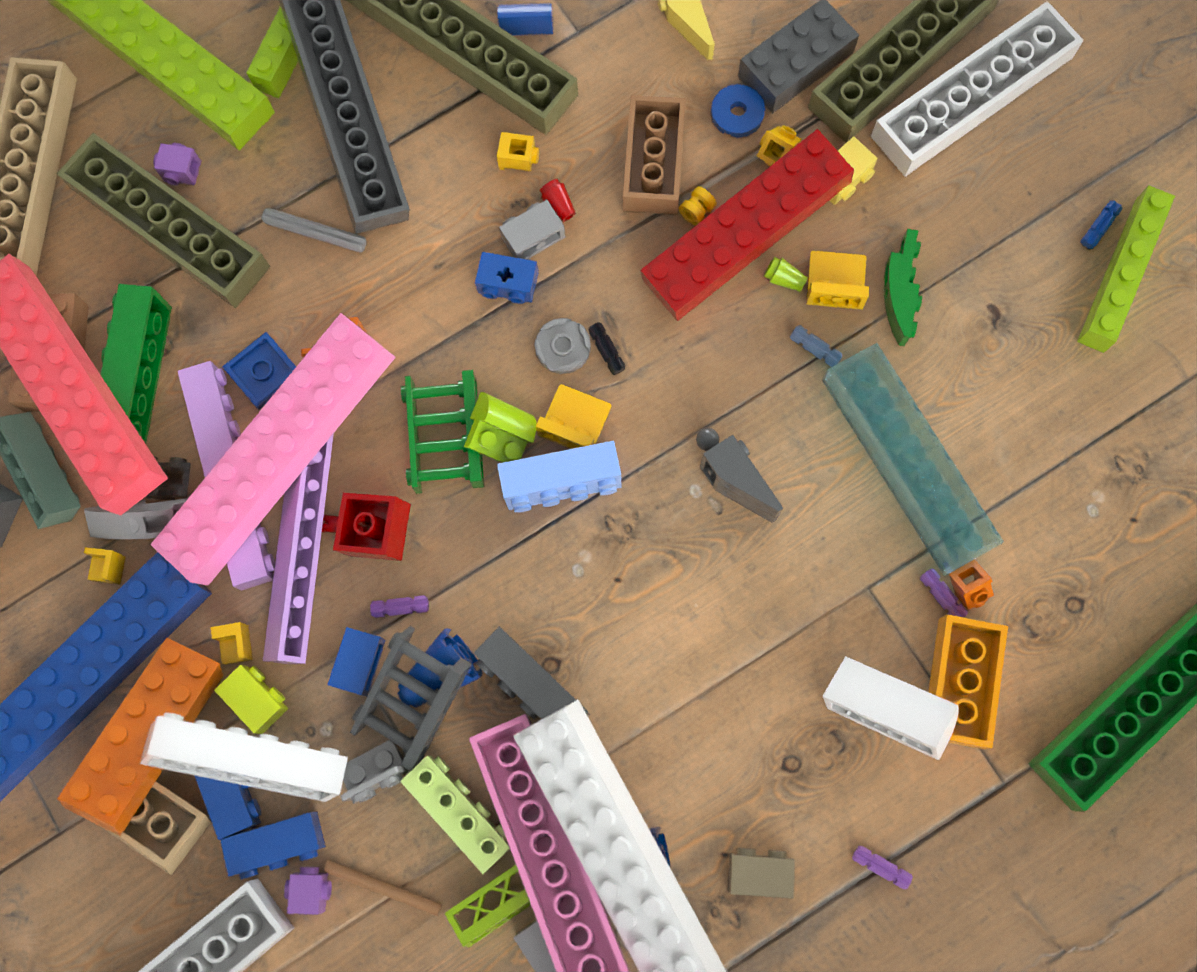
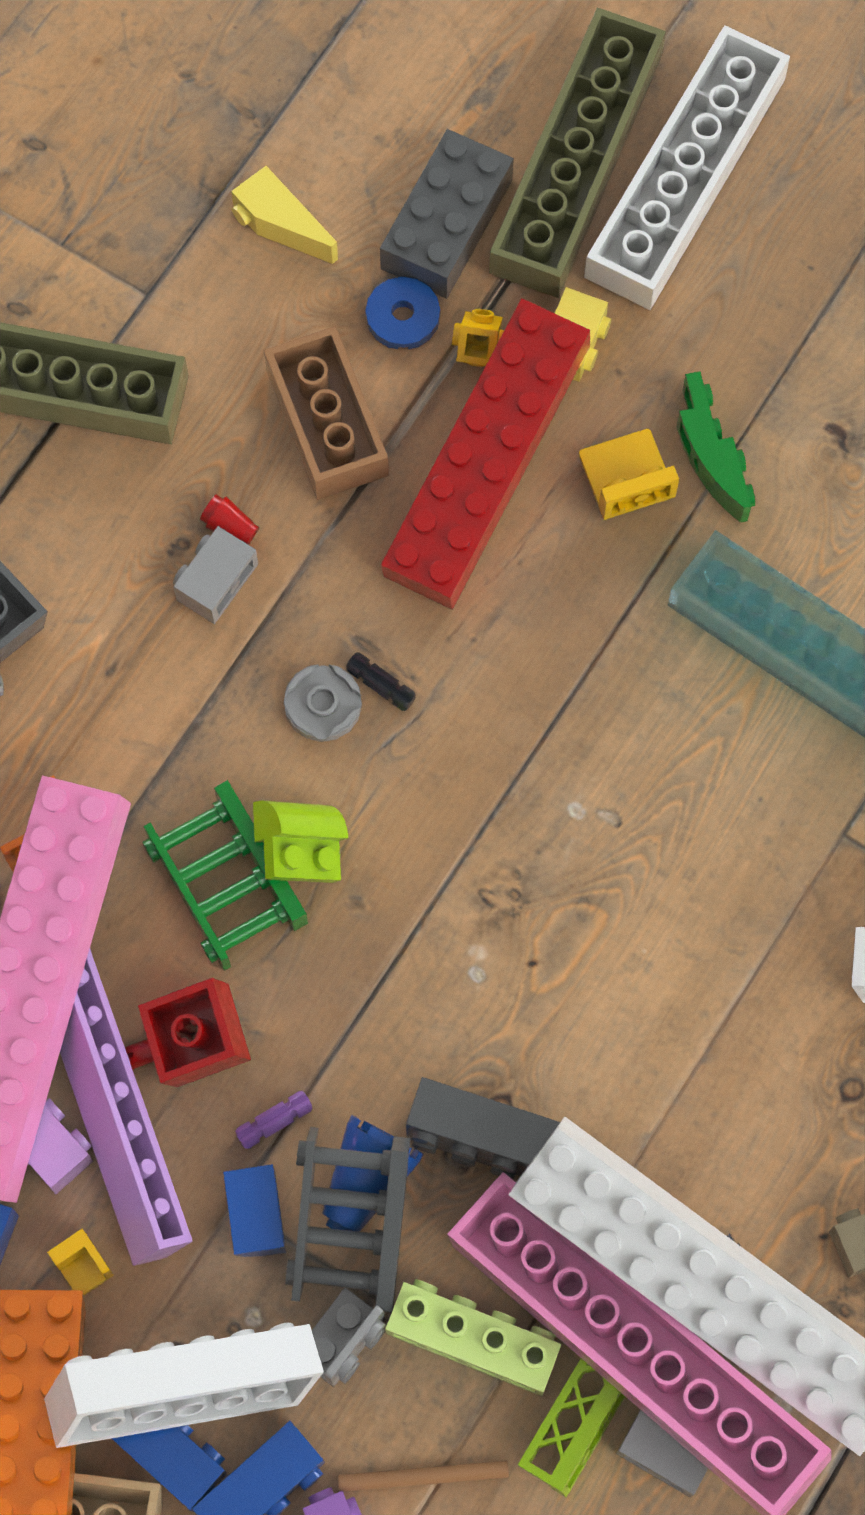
camera: 30 degrees left, 5 degrees down
(252, 698) = (139, 1318): neon yellow brick -> none
(496, 268) = (225, 632): blue brick -> none
(517, 152) = (147, 470): yellow brick -> none
(526, 18) = (75, 305): blue brick -> none
(560, 476) = (404, 864): light blue brick -> none
(573, 418) = (384, 788): yellow bracket -> none
(697, 206) = (411, 453): yellow wheel -> none
(735, 475) = (620, 767): dark grey slope -> none
(784, 274) = (560, 494): lime cone -> none
(816, 346) = (640, 566): sand blue axle -> none

